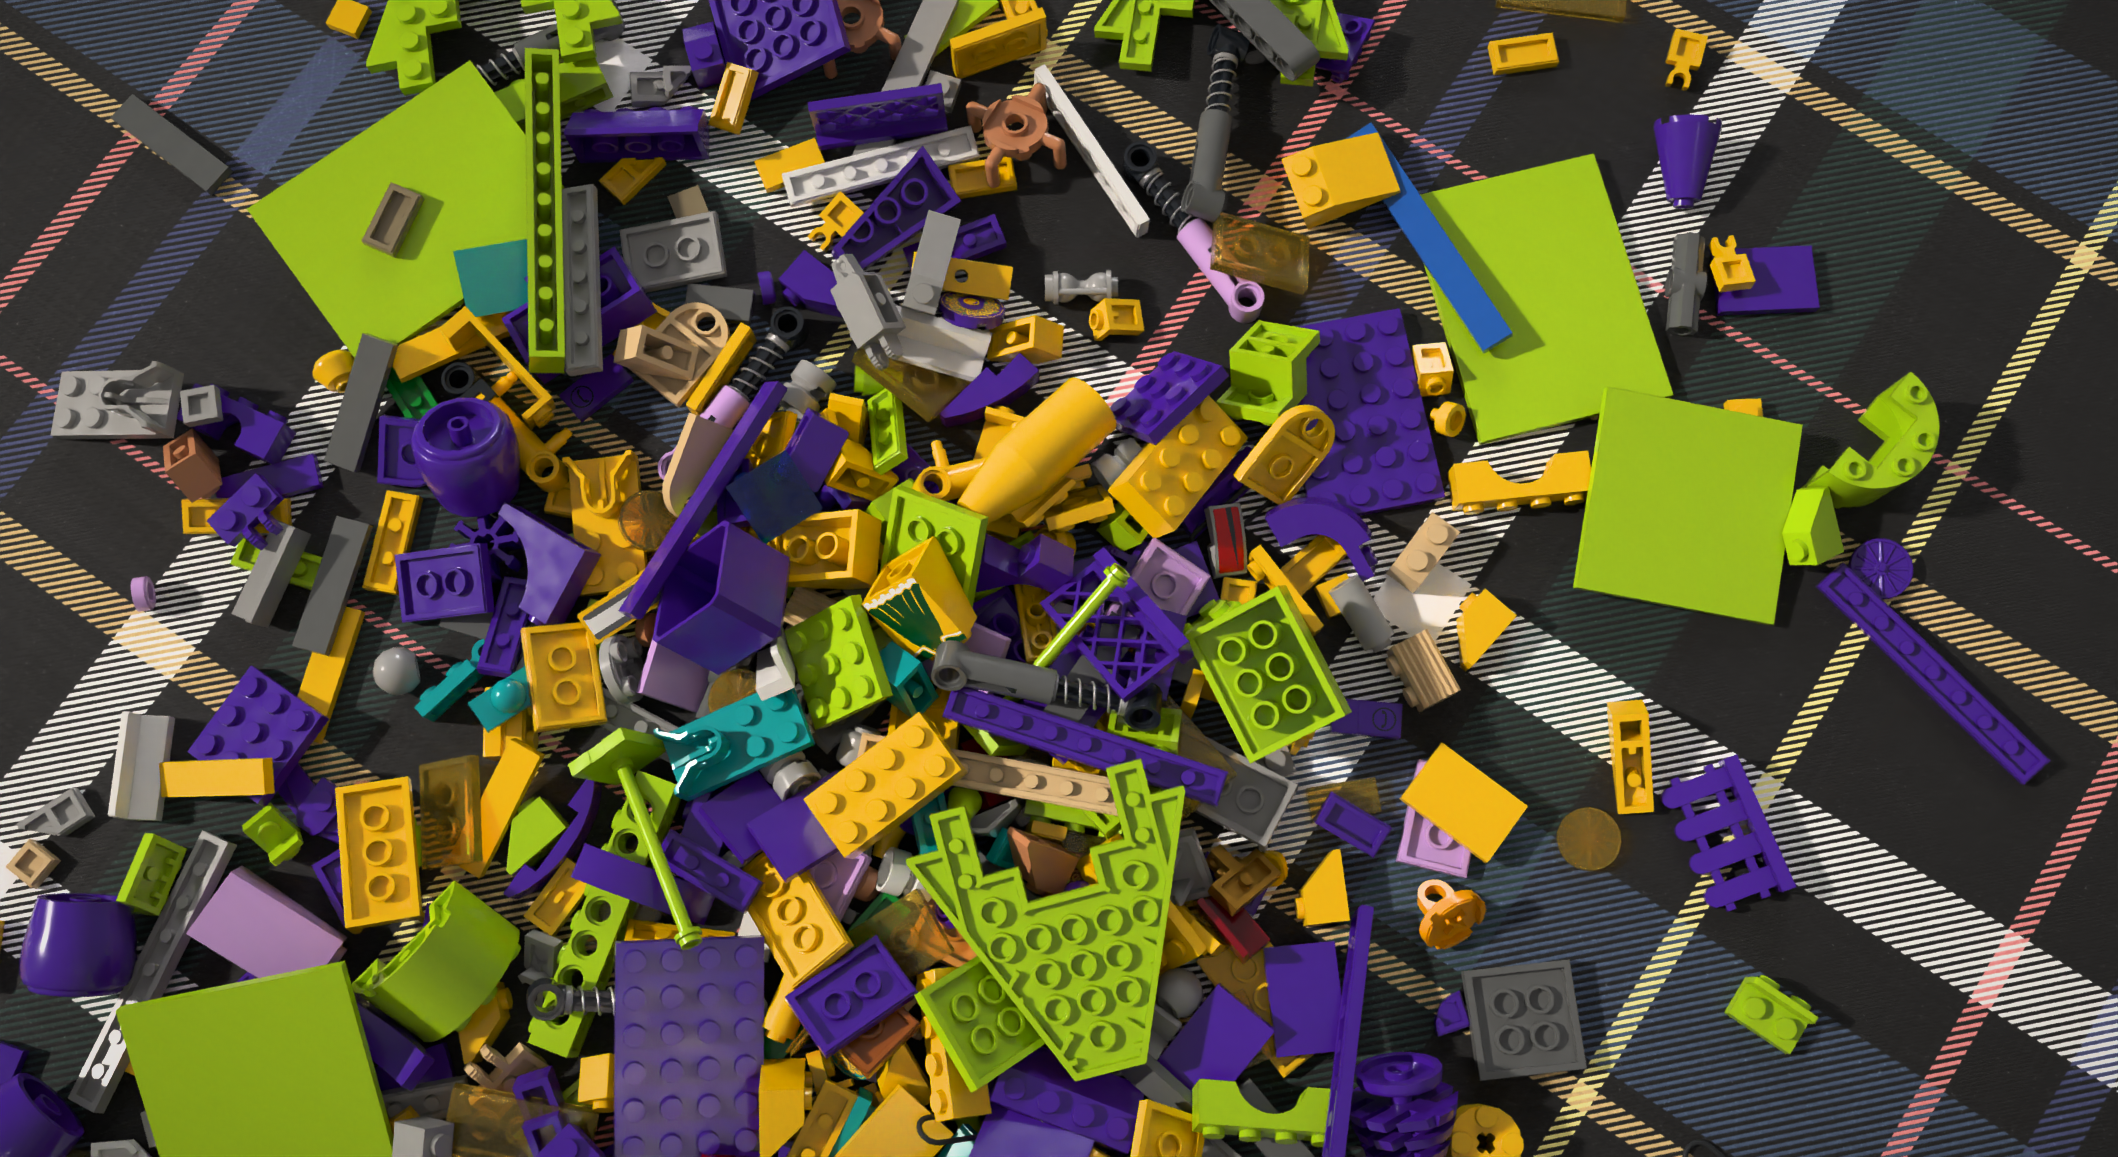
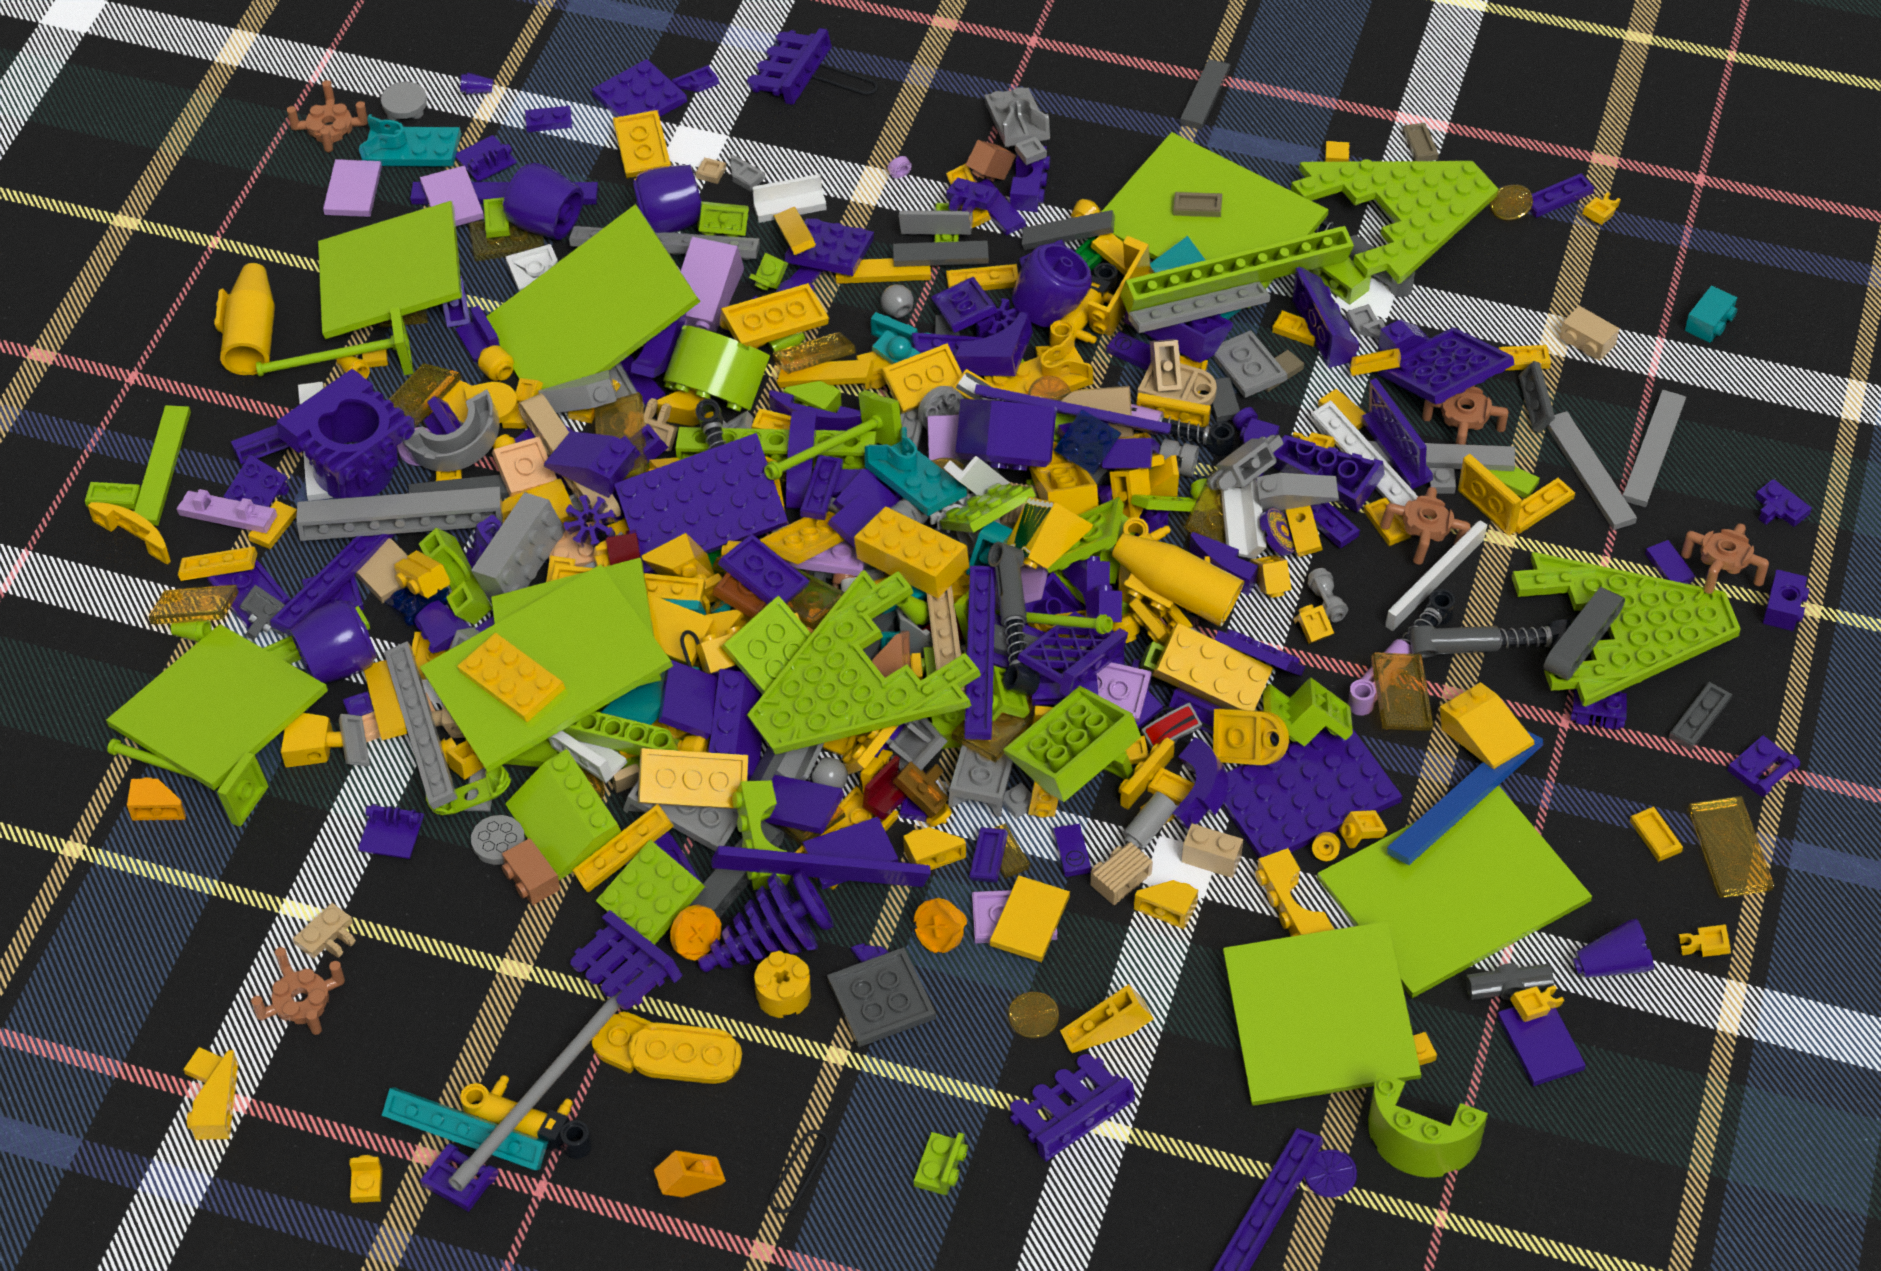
camera: 75 degrees right, 25 degrees down
(1812, 528) = (1335, 1101): lime slope -> none

